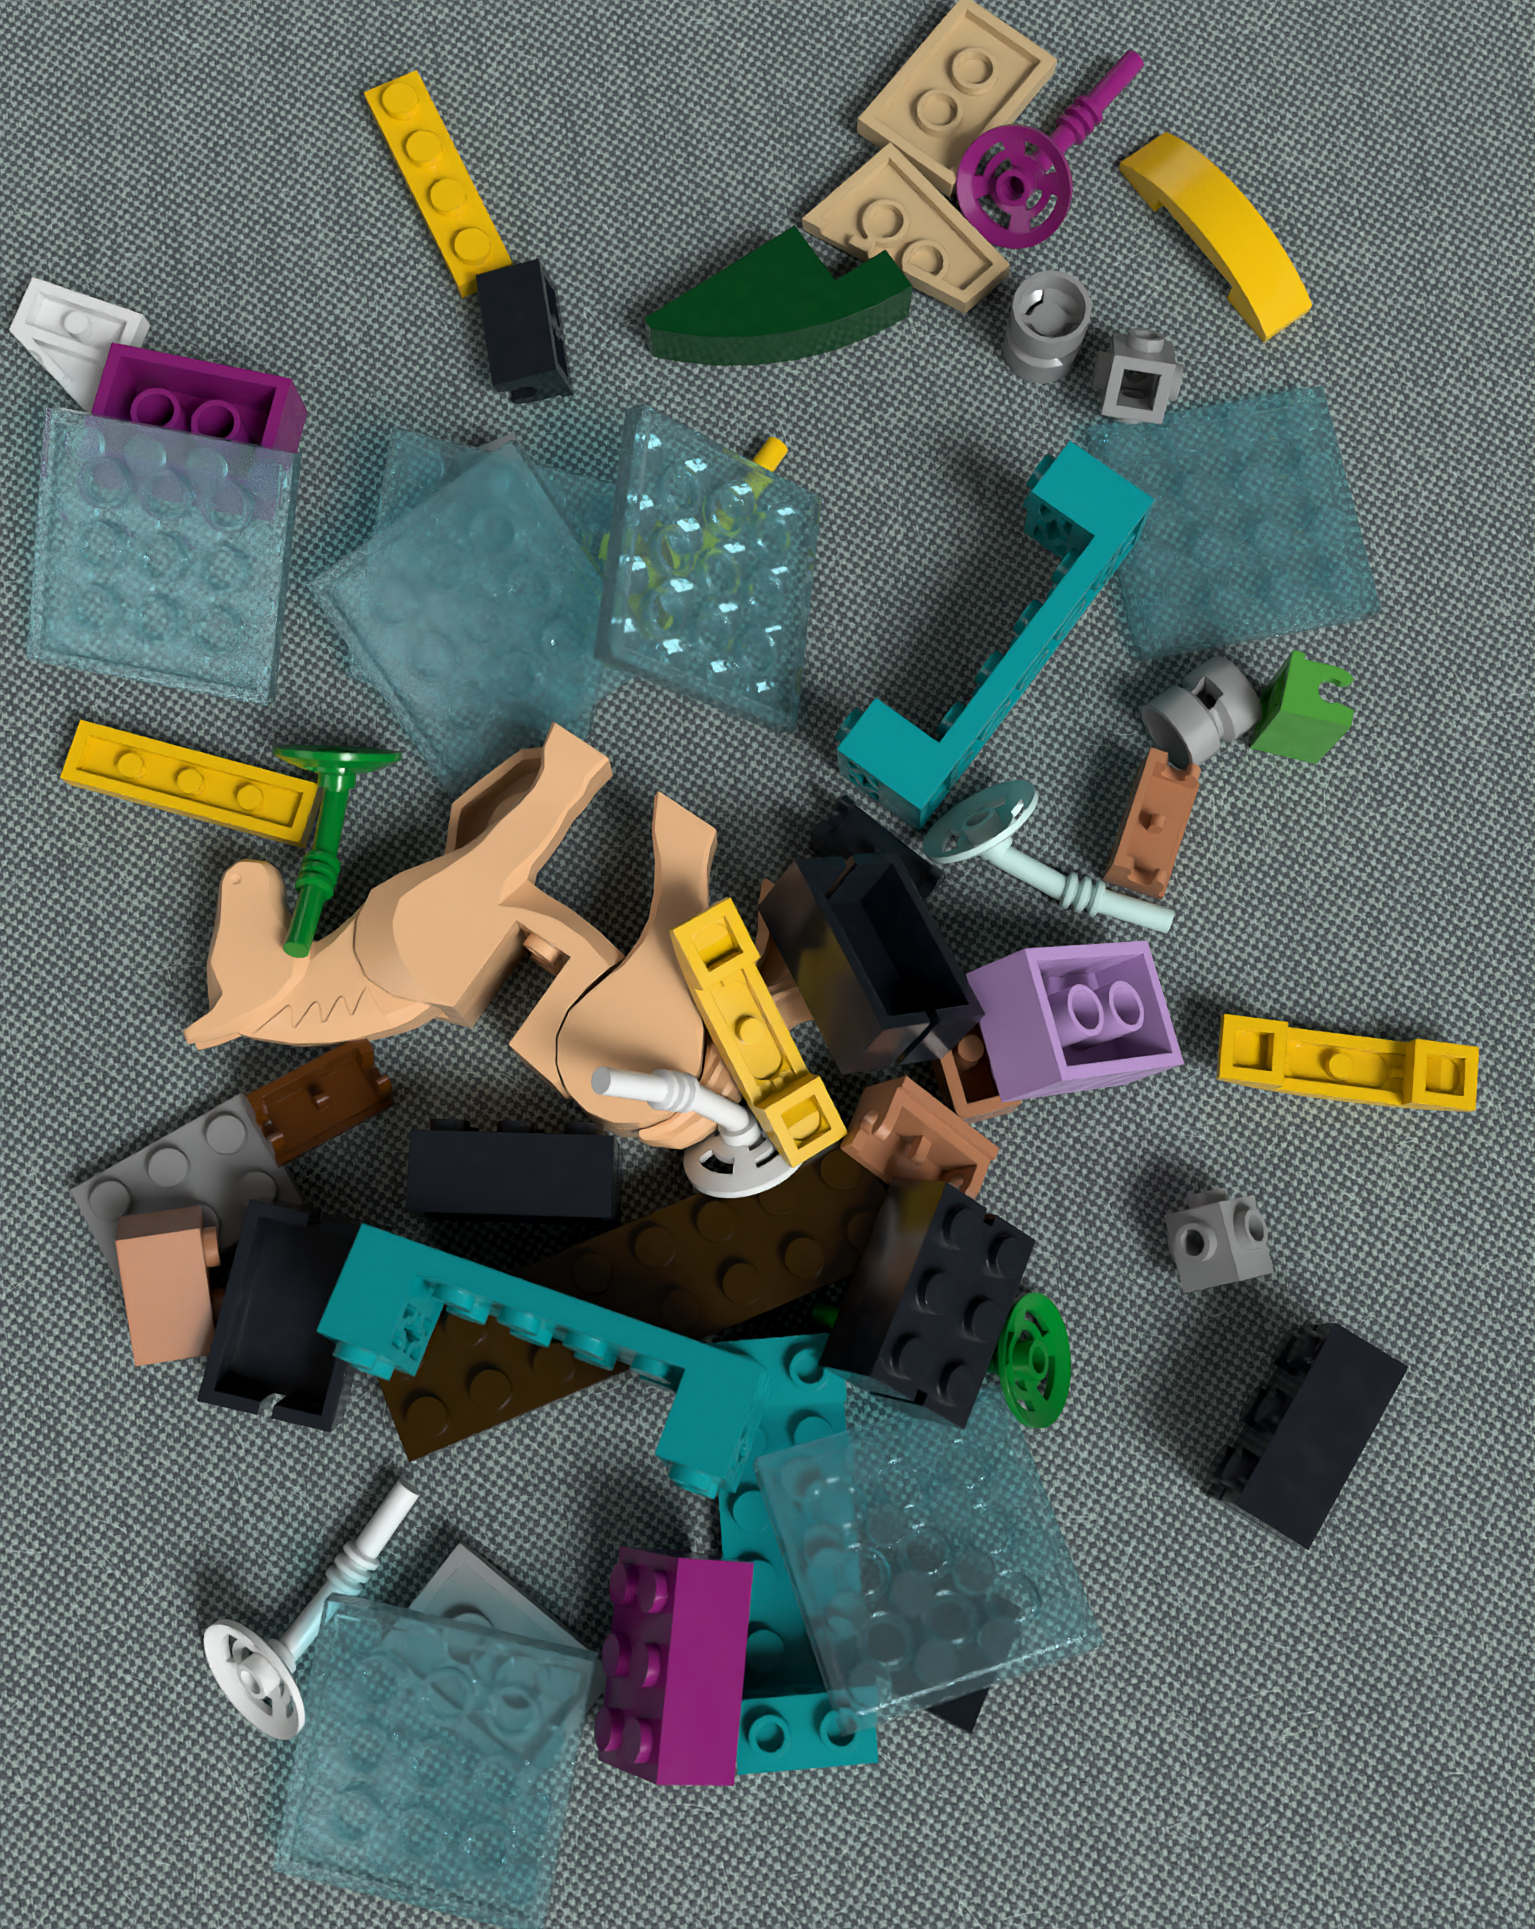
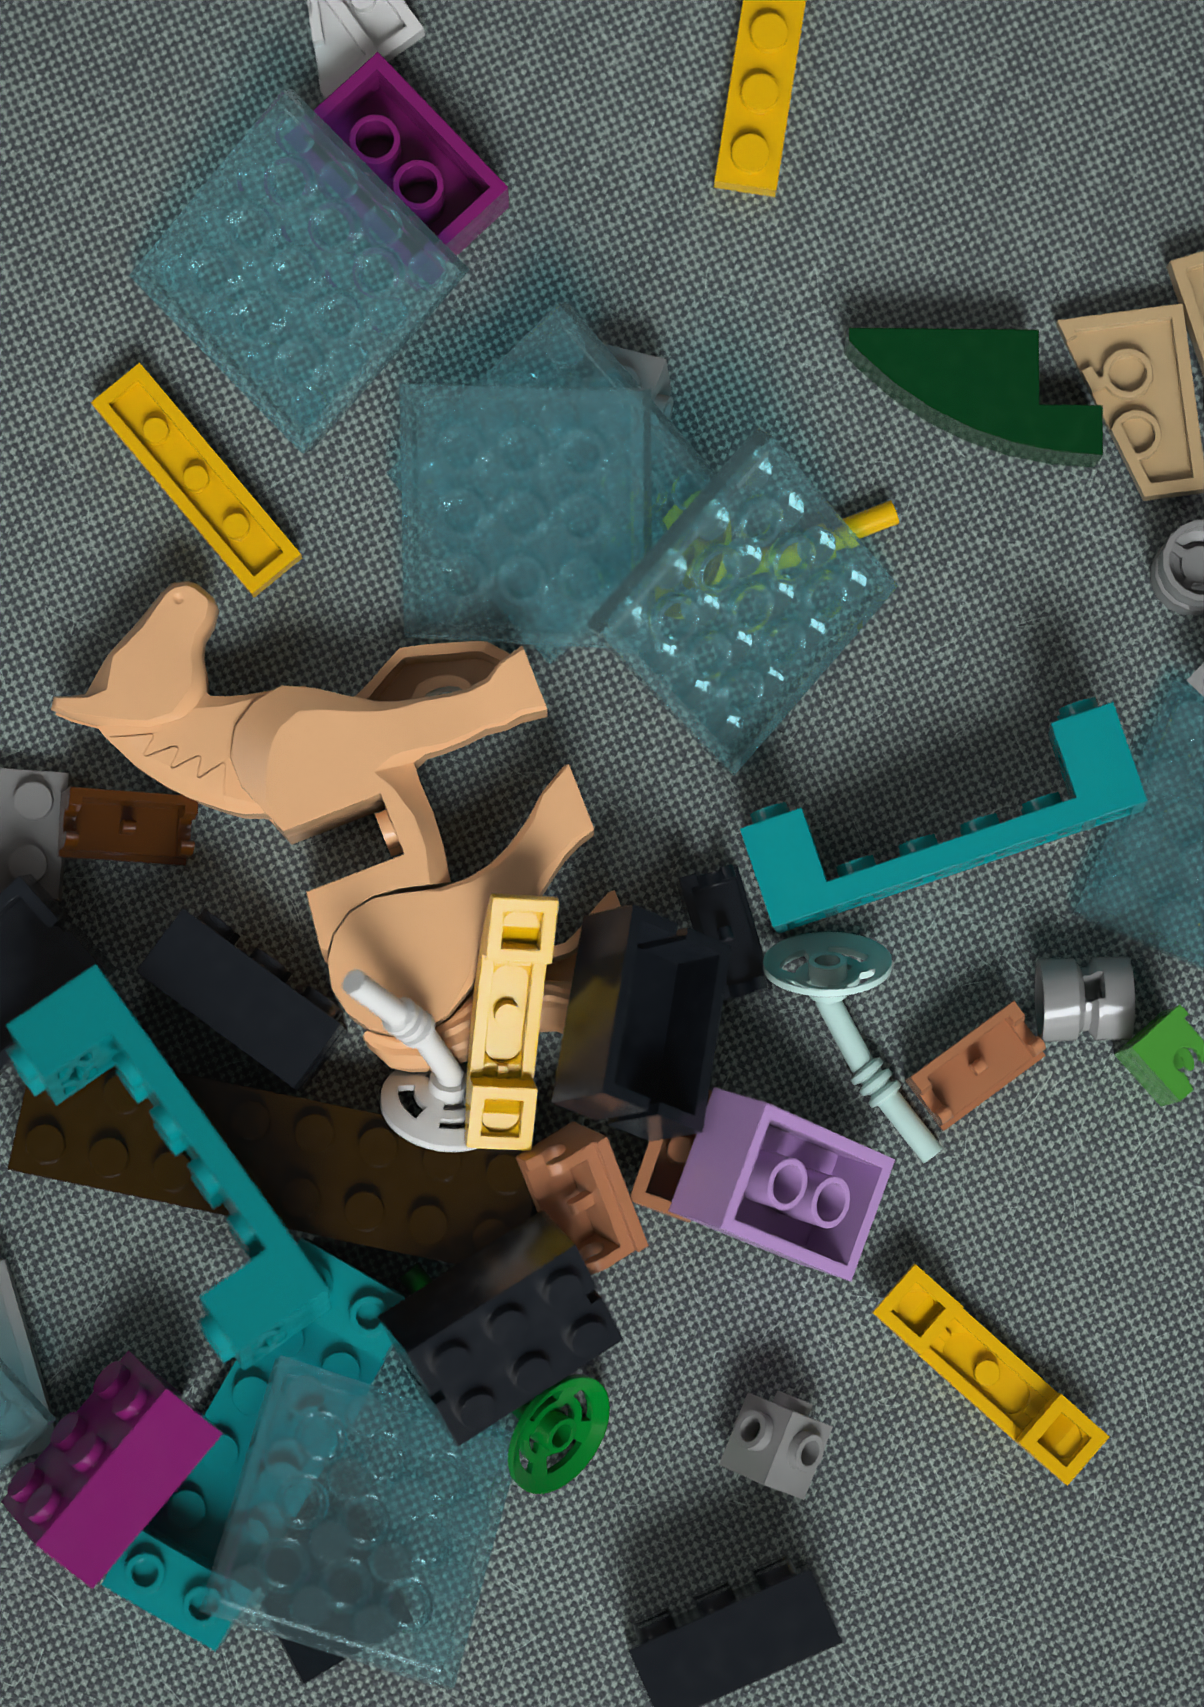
camera: 30 degrees right, 5 degrees up
(320, 867) = (323, 553): green dish -> none
(524, 332) = (742, 264): black hinge -> none

